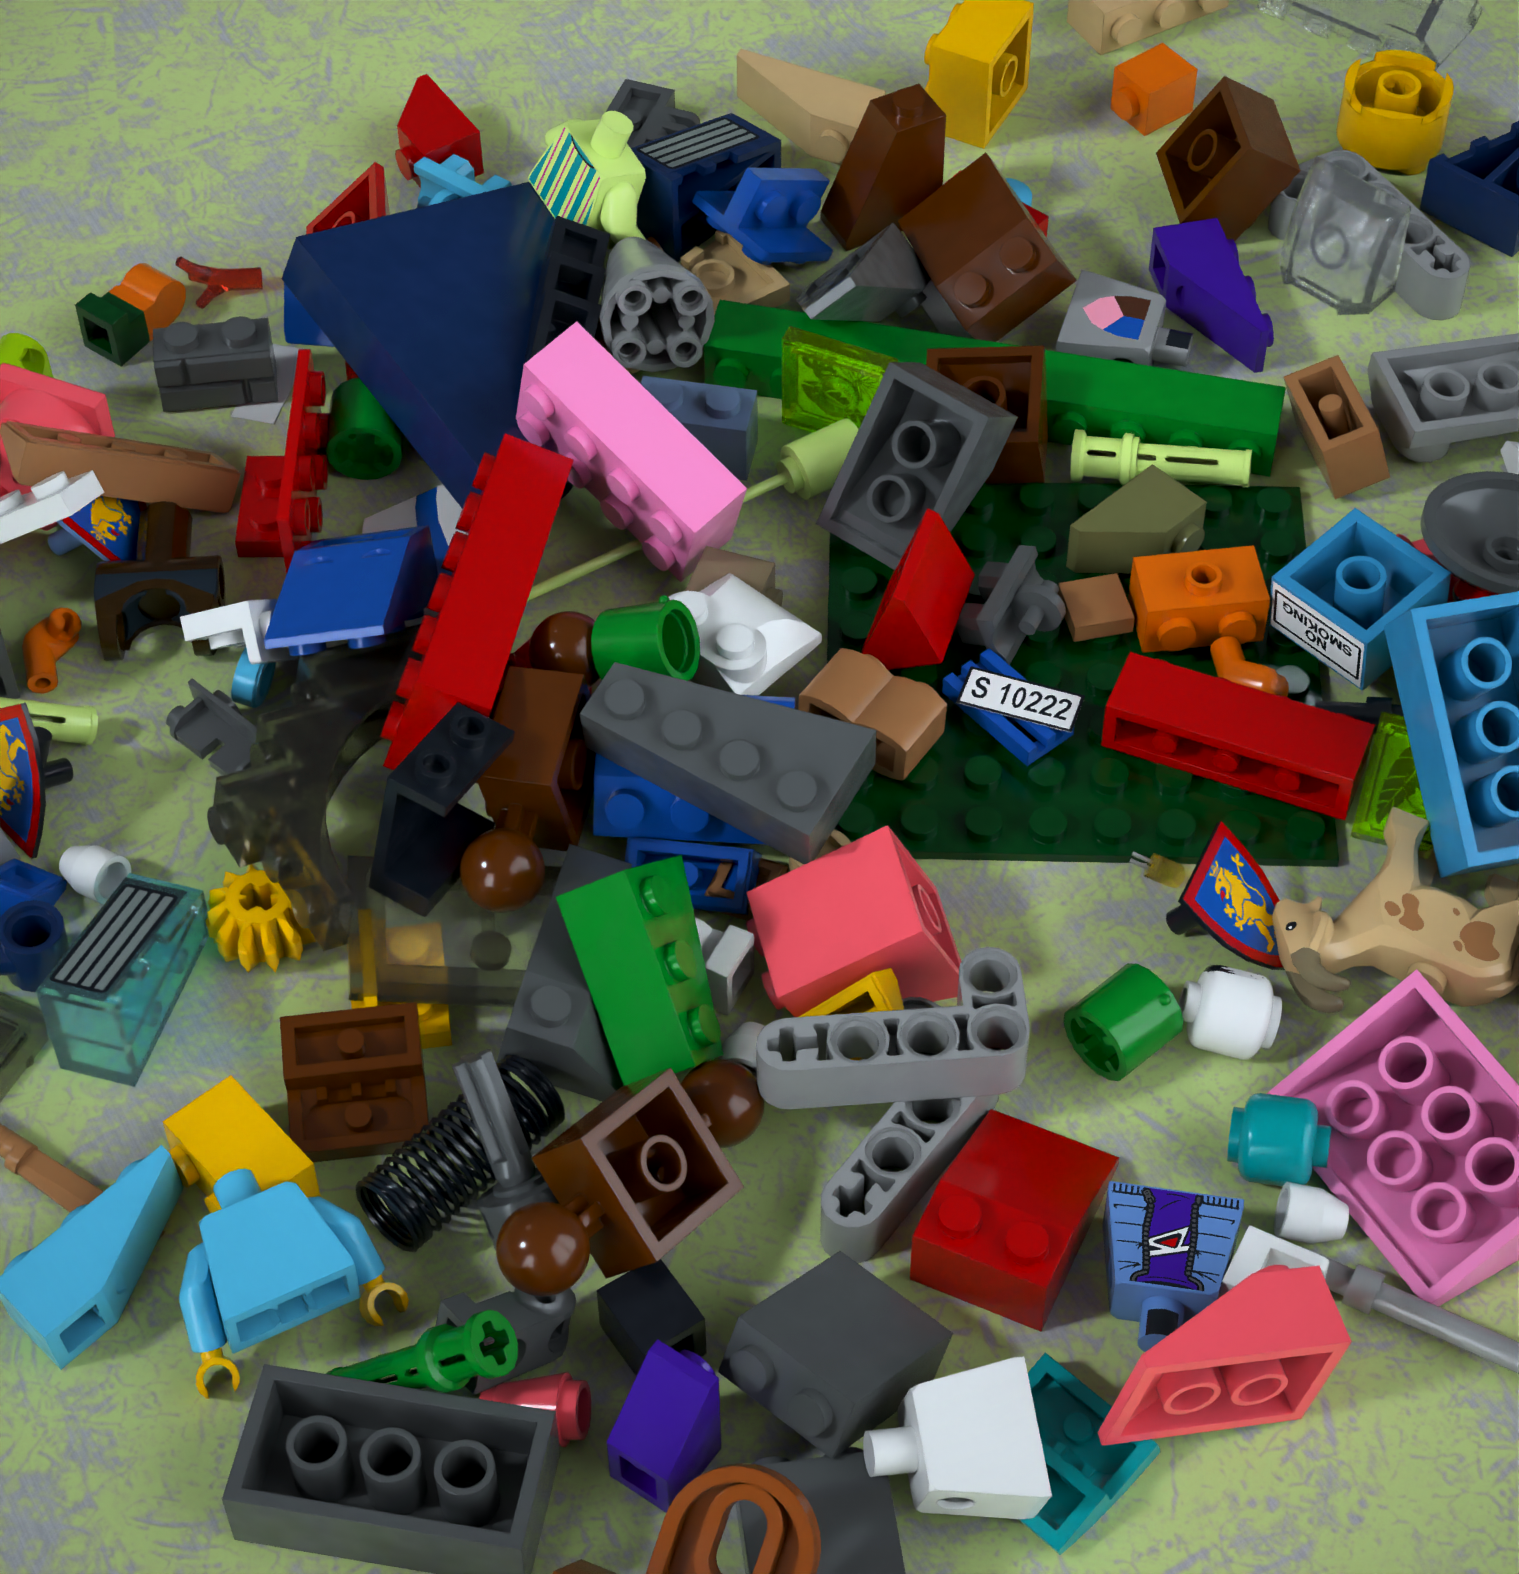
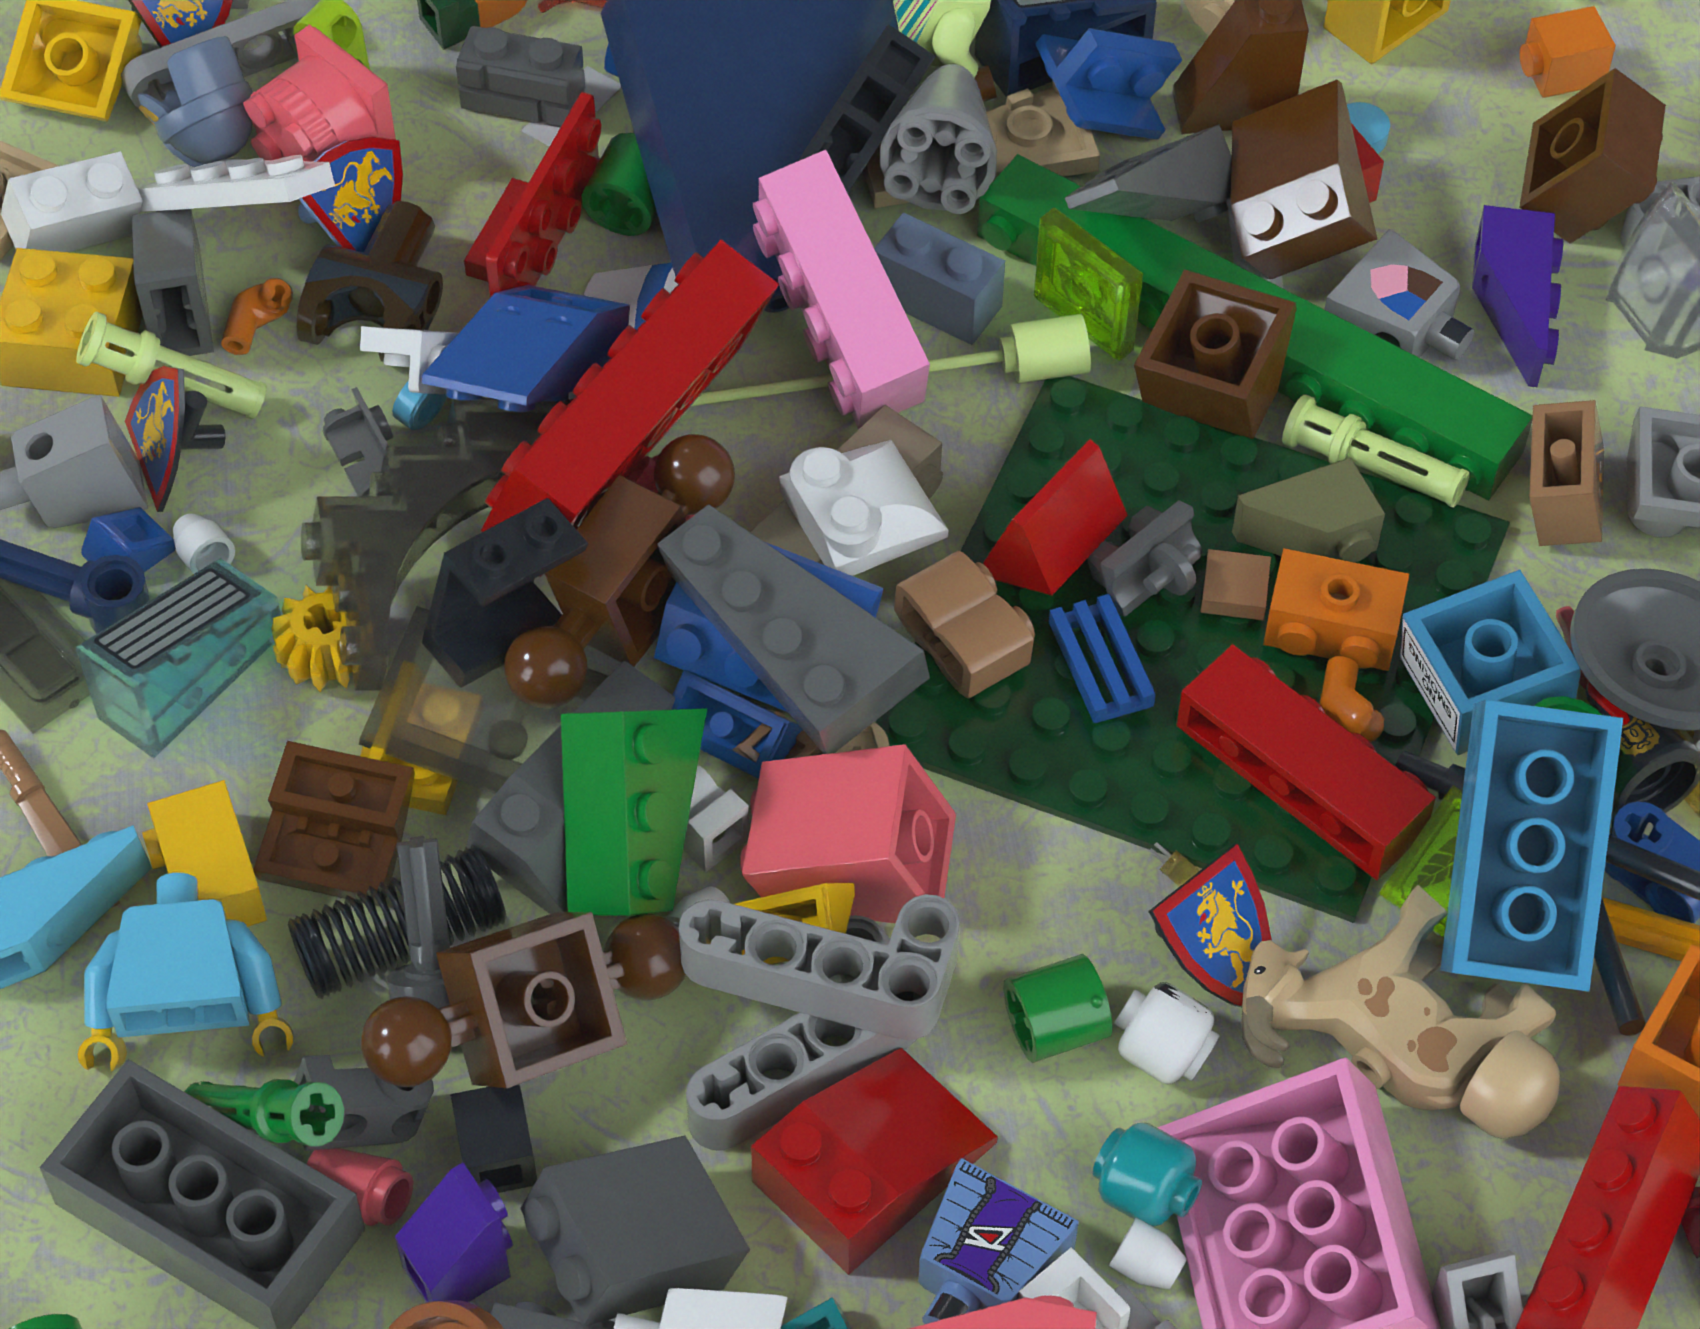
camera: 20 degrees right, 5 degrees up
(122, 466) = (379, 158): medium nougat slope -> none
(648, 637) = (763, 491): green piece -> none
(915, 451) = (1118, 379): dark grey slope -> none
(1020, 699) = (1113, 655): white sticker -> none

